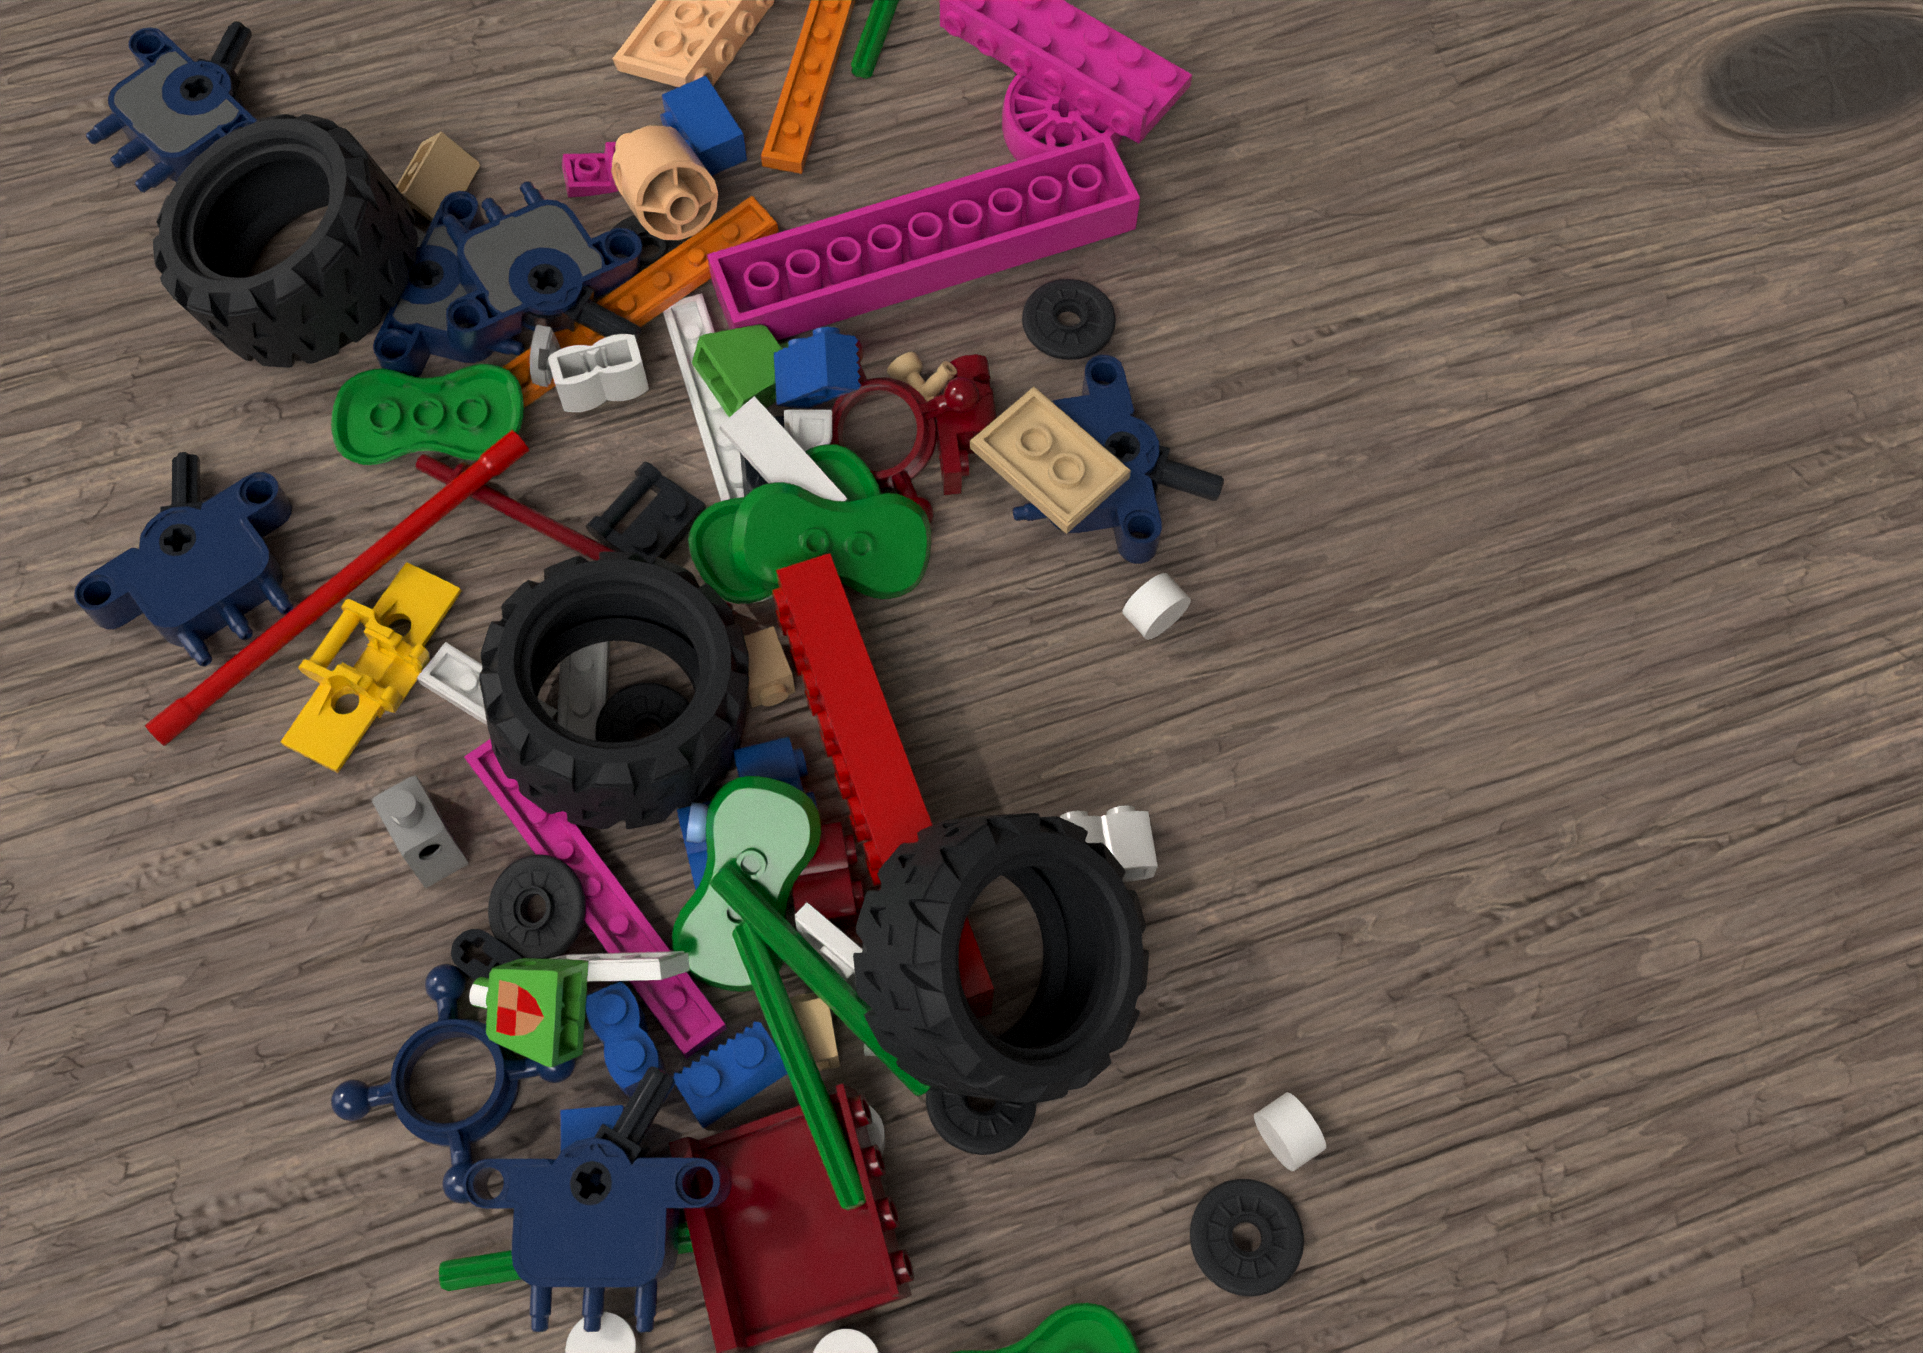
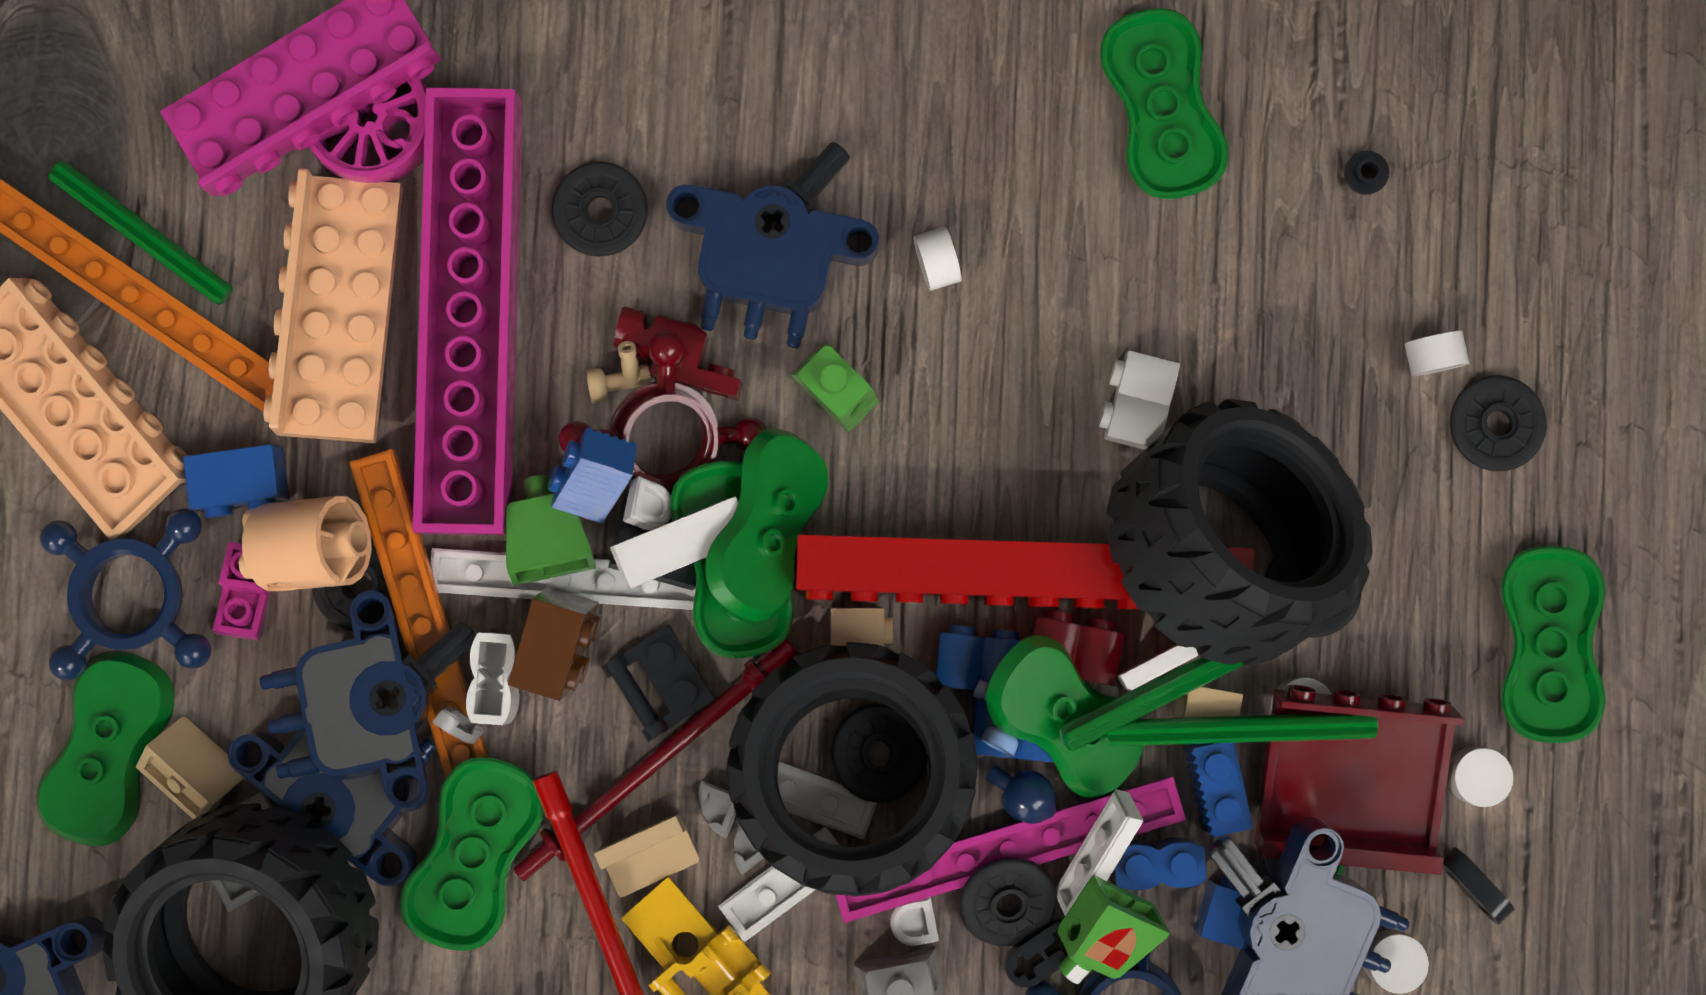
camera: 65 degrees left, 20 degrees up
(396, 118) = (94, 780): none -> green plate
(477, 564) = (648, 855): none -> tan panel
(488, 831) = (914, 923): none -> white tile
(565, 52) = (61, 539): none -> dark blue piece
(648, 402) = (554, 644): none -> reddish brown brick
(654, 882) = (1026, 795): none -> dark blue piece
(881, 142) = (334, 309): none -> light nougat bracket
(996, 551) = (835, 386): none -> bright green torso
(1050, 459) = (762, 294): tan tile -> none
(1386, 778) = (1172, 137): none -> green plate
(1435, 999) = (1360, 184): none -> black plate

